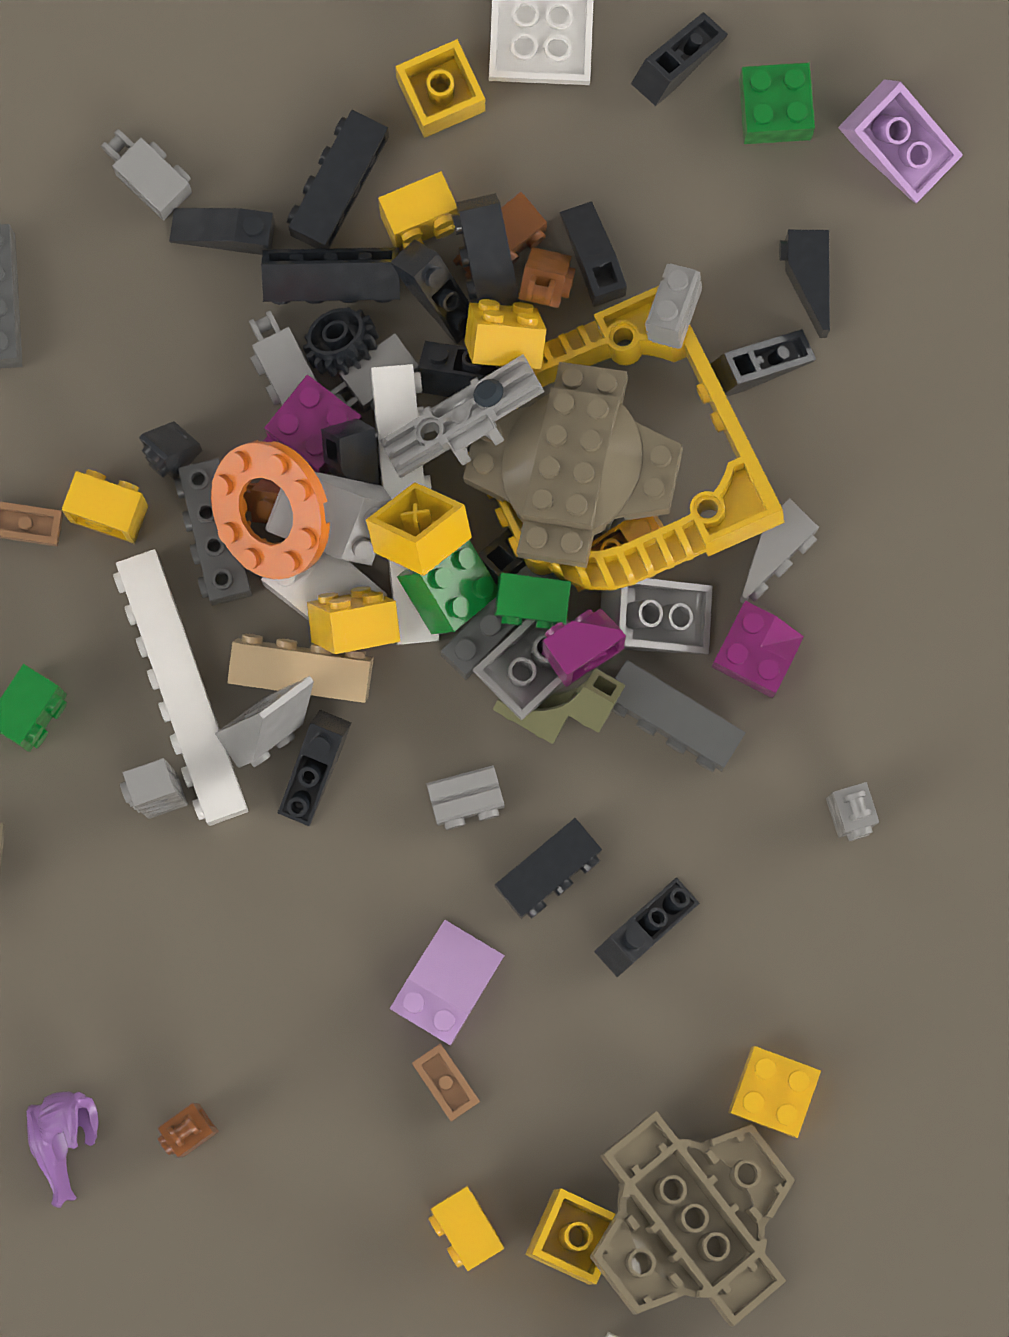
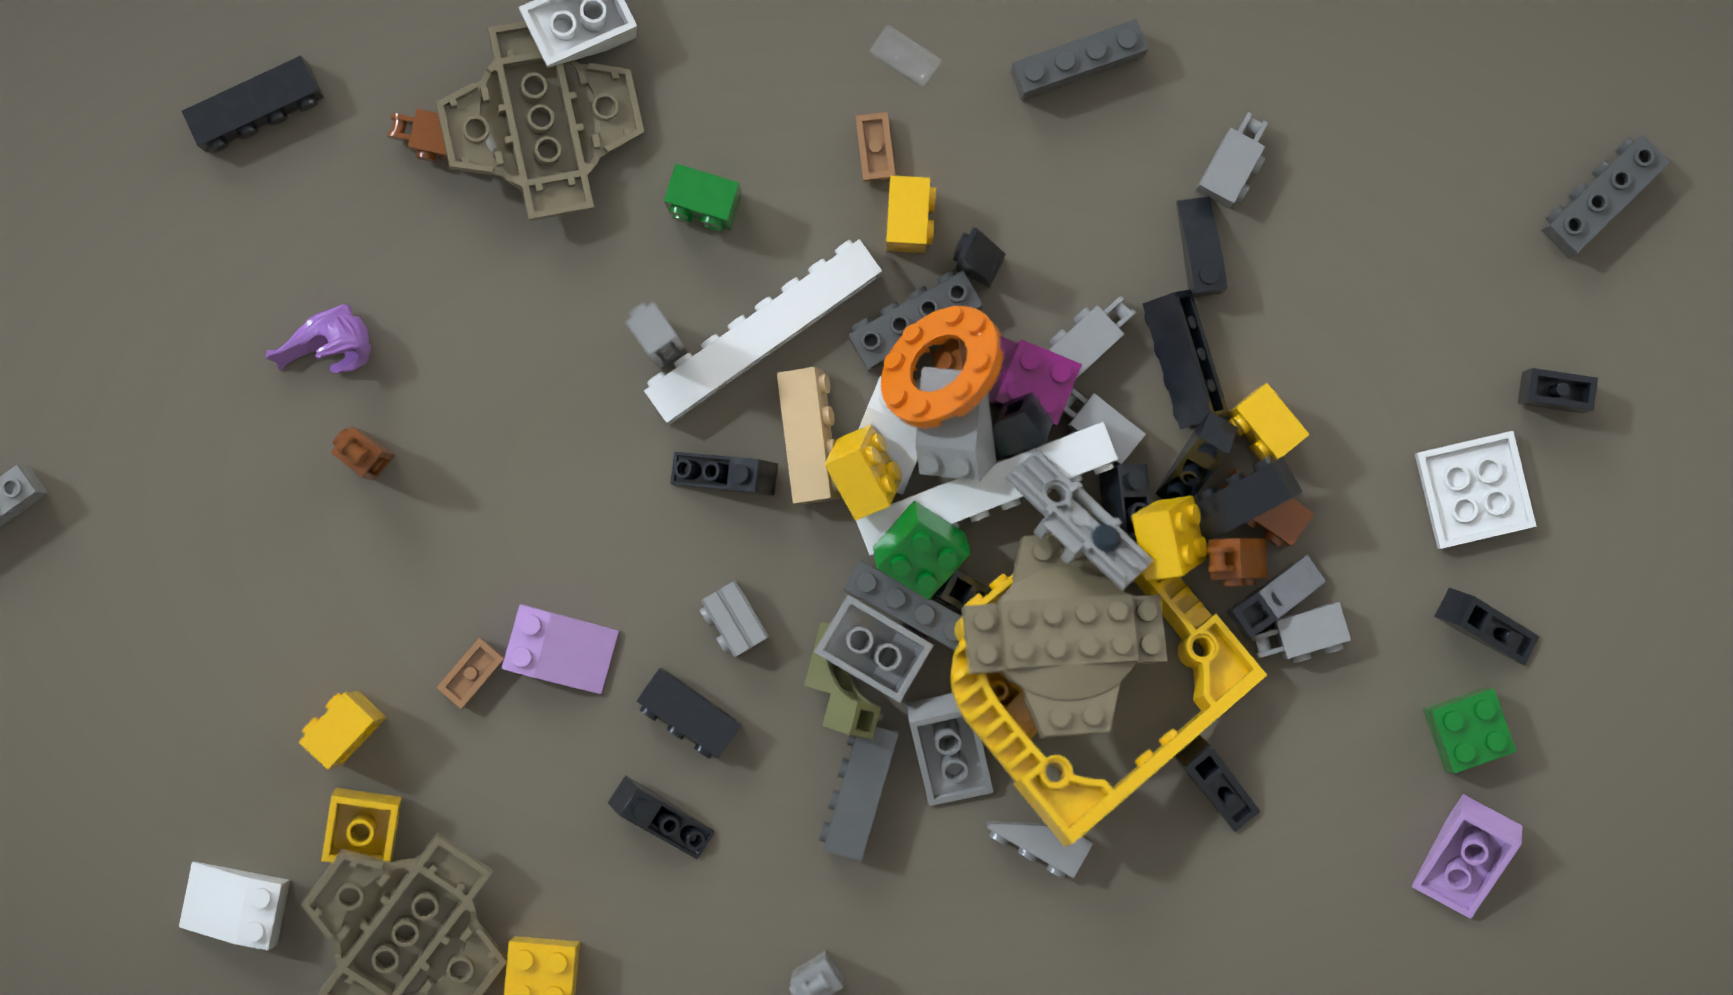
camera: 75 degrees right, 5 degrees up
(266, 724) = (747, 418): light grey slope -> none
(338, 180) = (1277, 340): black brick -> none
(340, 340) = (1125, 385): black gear -> none
(419, 528) = (960, 509): yellow brick -> none
(440, 88) = (1392, 410): yellow brick -> none
(532, 599) = (926, 631): green brick -> none
(582, 645) = (896, 690): magenta slope -> none
(637, 234) = (1306, 632): none -> light grey brick
(673, 306) = (1242, 687): light grey brick -> none
(758, 649) = (944, 851): magenta slope -> none
(808, 270) = (1318, 802): black slope -> none

